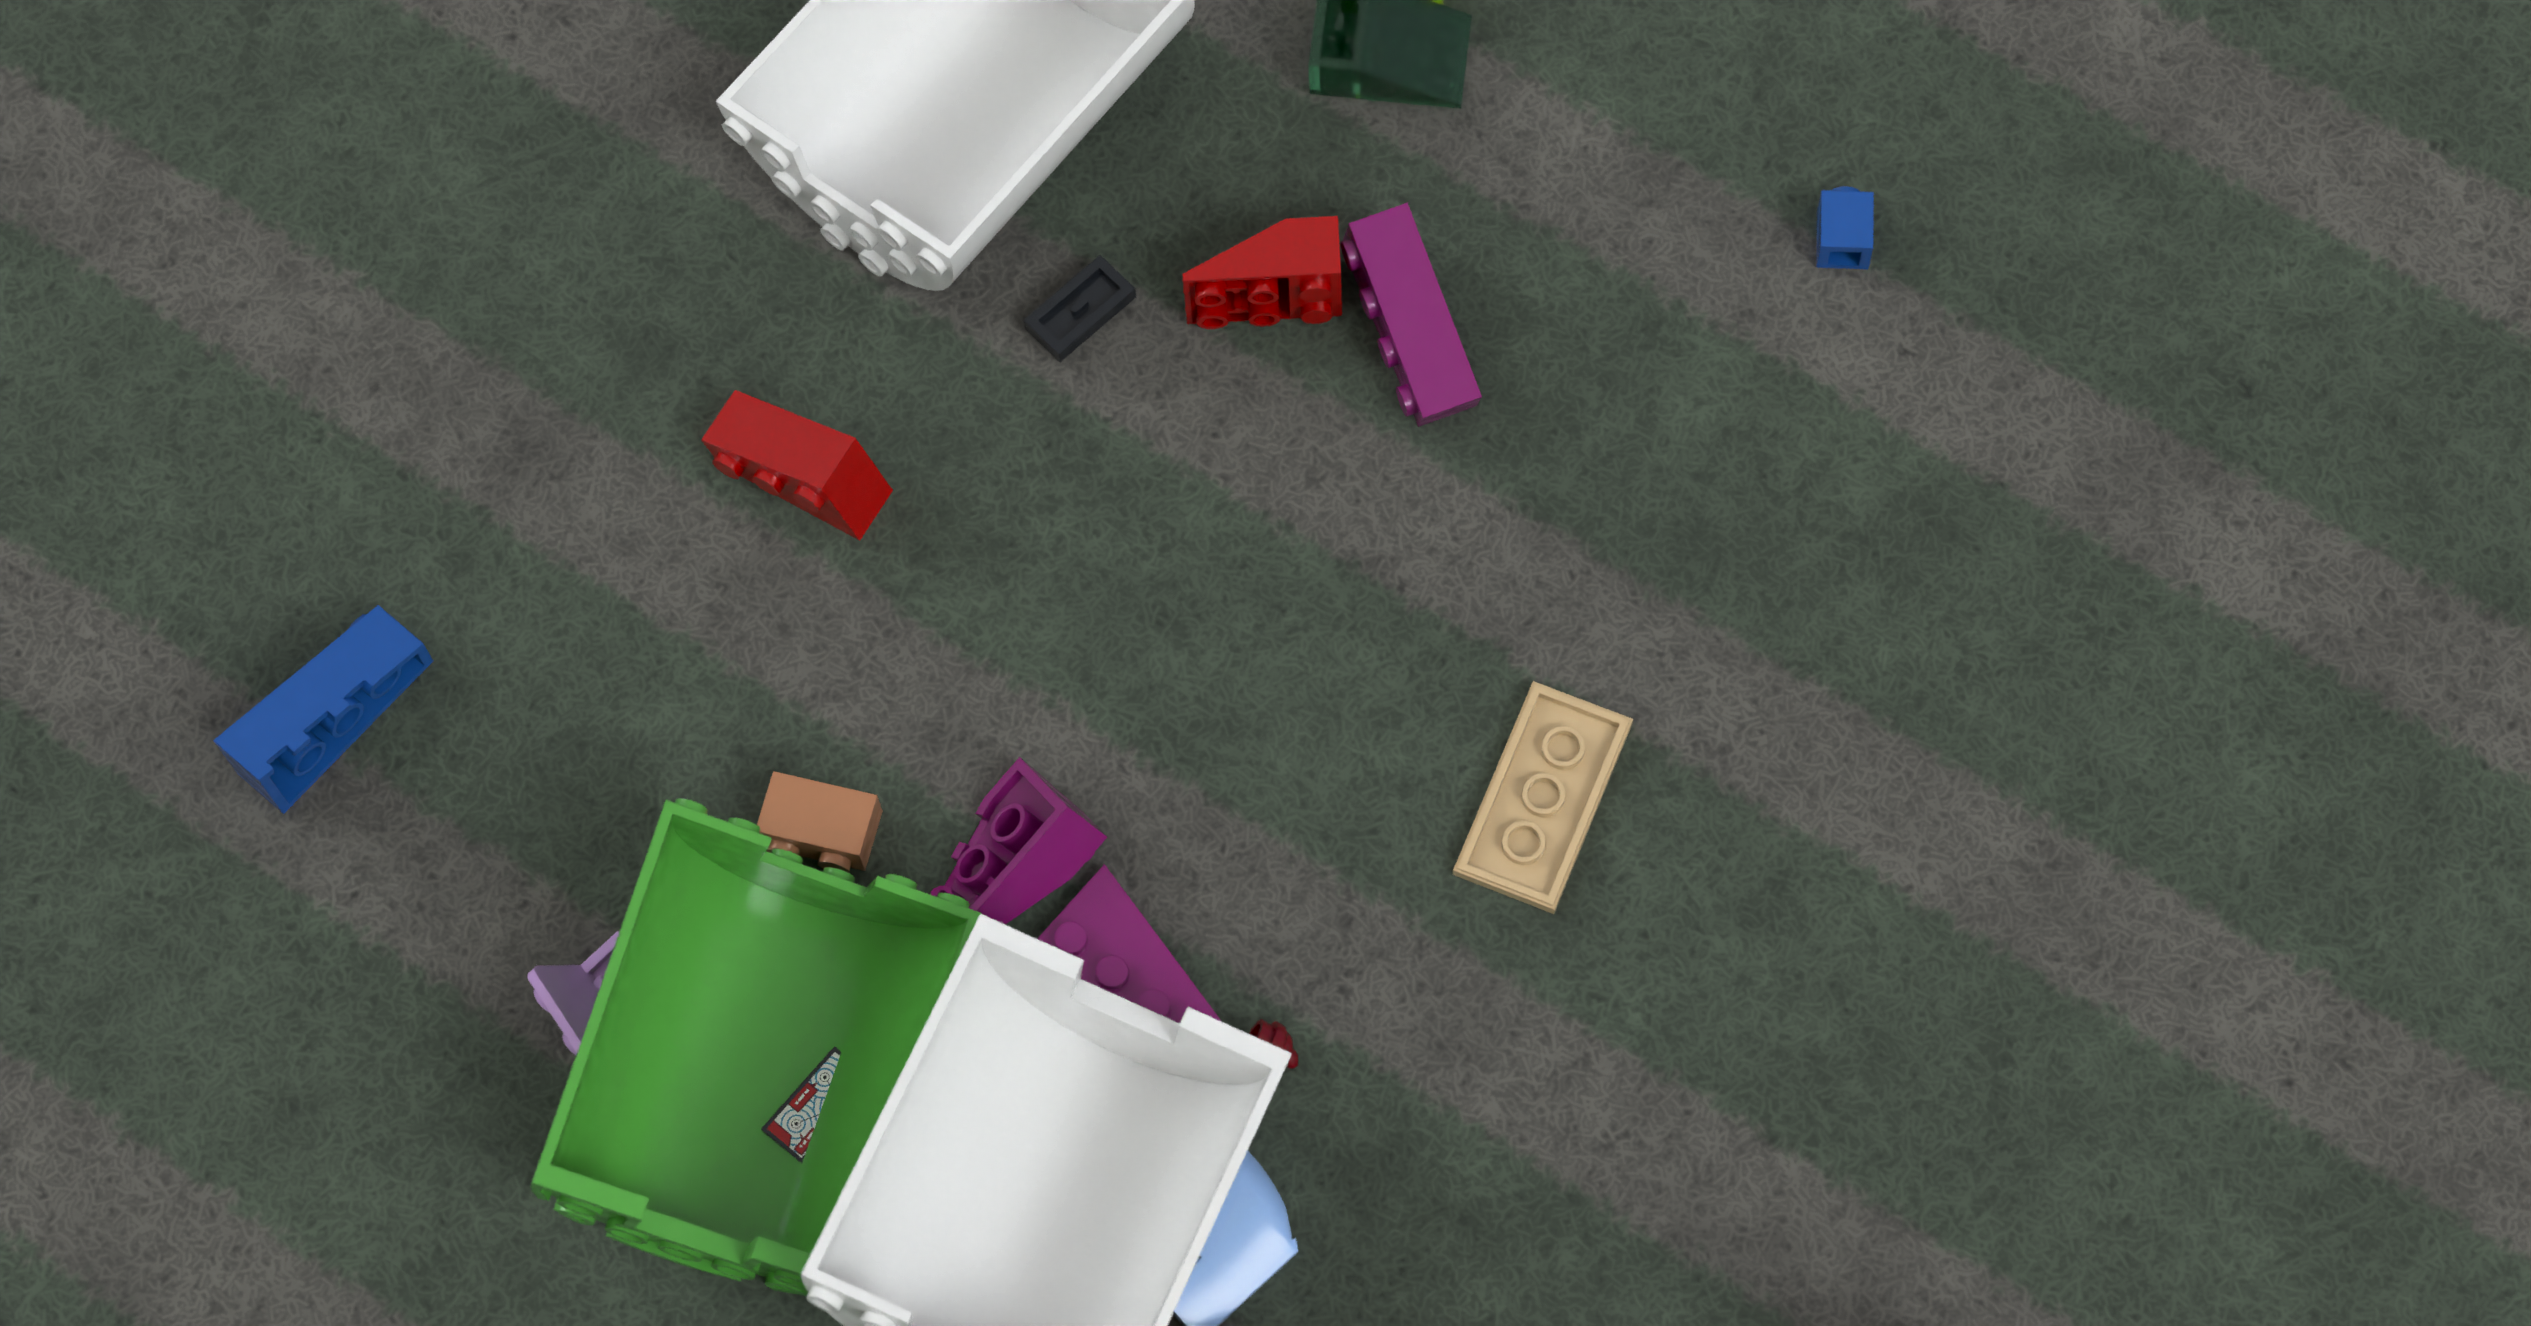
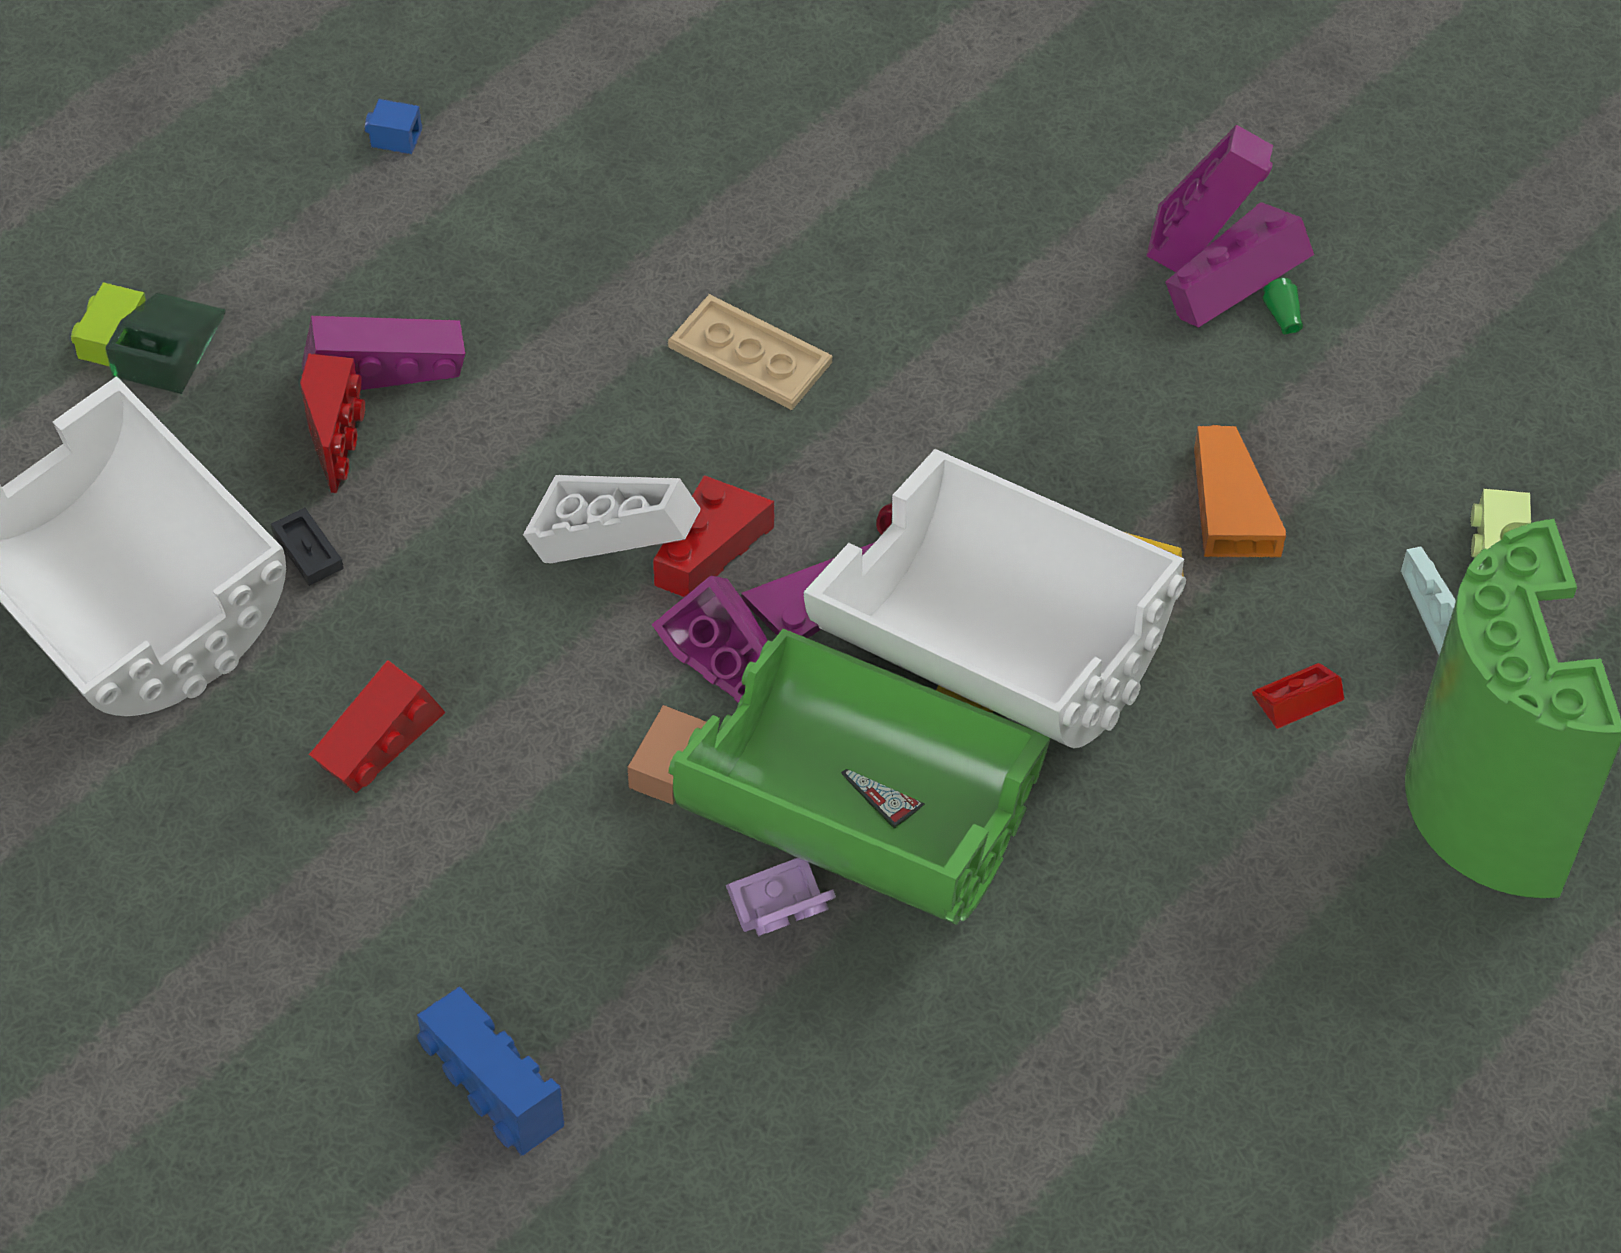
camera: 85 degrees left, 15 degrees down
(1164, 657) = (609, 515): none -> white wedge
(1183, 799) = (722, 530): none -> red wedge

